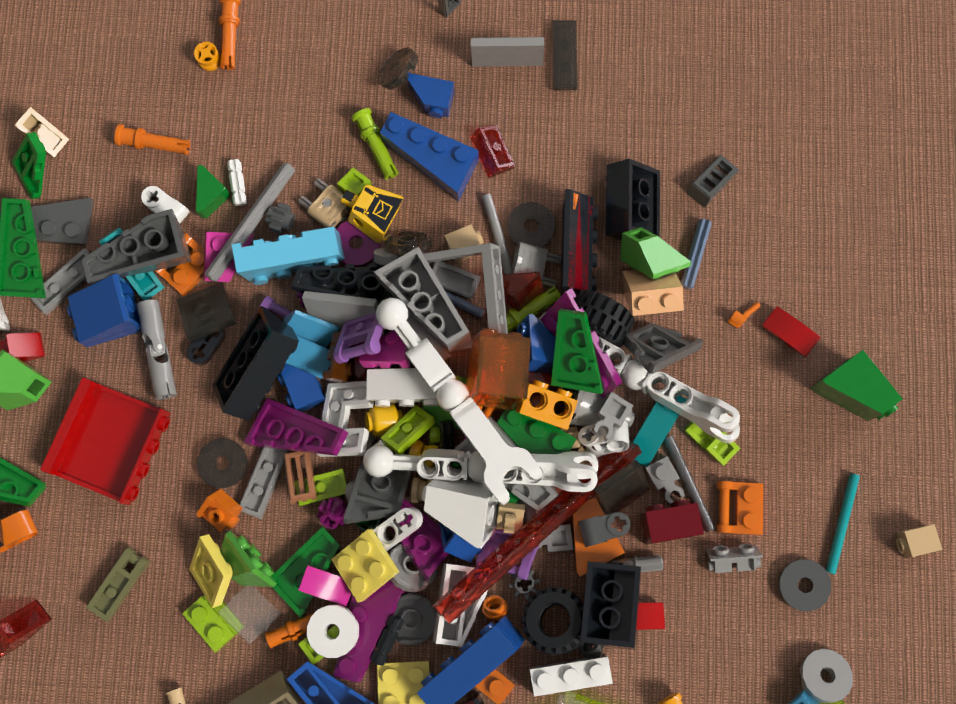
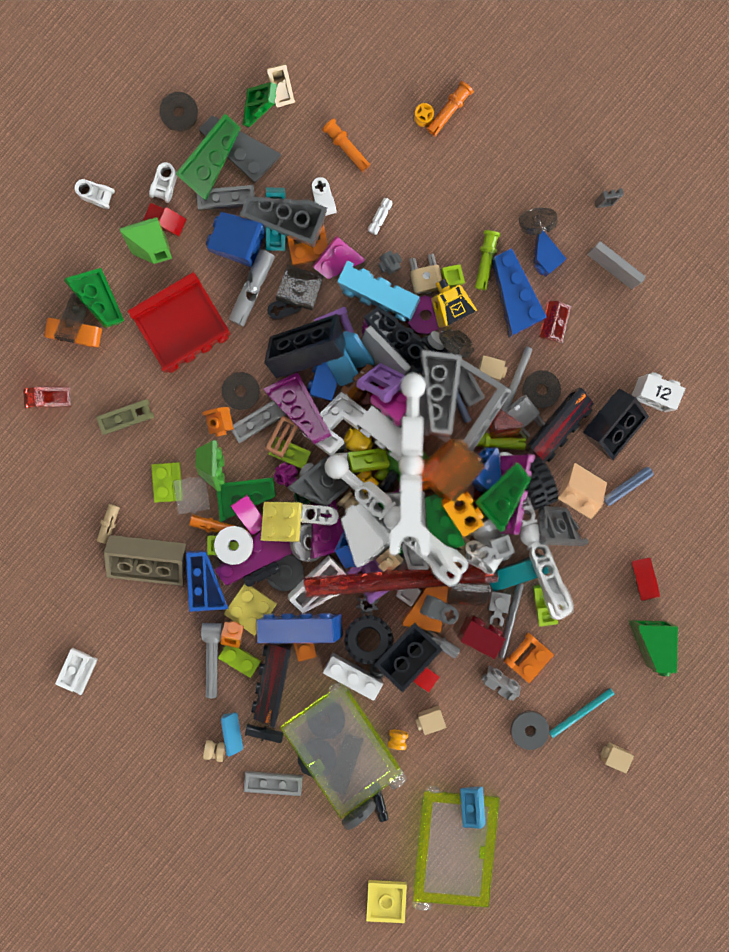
camera: 30 degrees right, 10 degrees up
(210, 193) = (358, 211): green slope -> none
(211, 570) = (187, 454): light yellow plate -> none
(250, 221) = (370, 250): light grey axle -> none
(494, 607) = (342, 601): orange plate -> none
(565, 55) = (650, 294): clear smoke tile -> none
(649, 137) = (658, 392): none -> white brick
(650, 254) = (599, 468): bright green slope -> none
(691, 658) = (430, 720): none -> tan brick
(703, 192) = (664, 452): dark grey slope -> none
(738, 319) = (620, 546): orange hand -> none
(840, 674) = (509, 793): light grey tile -> none

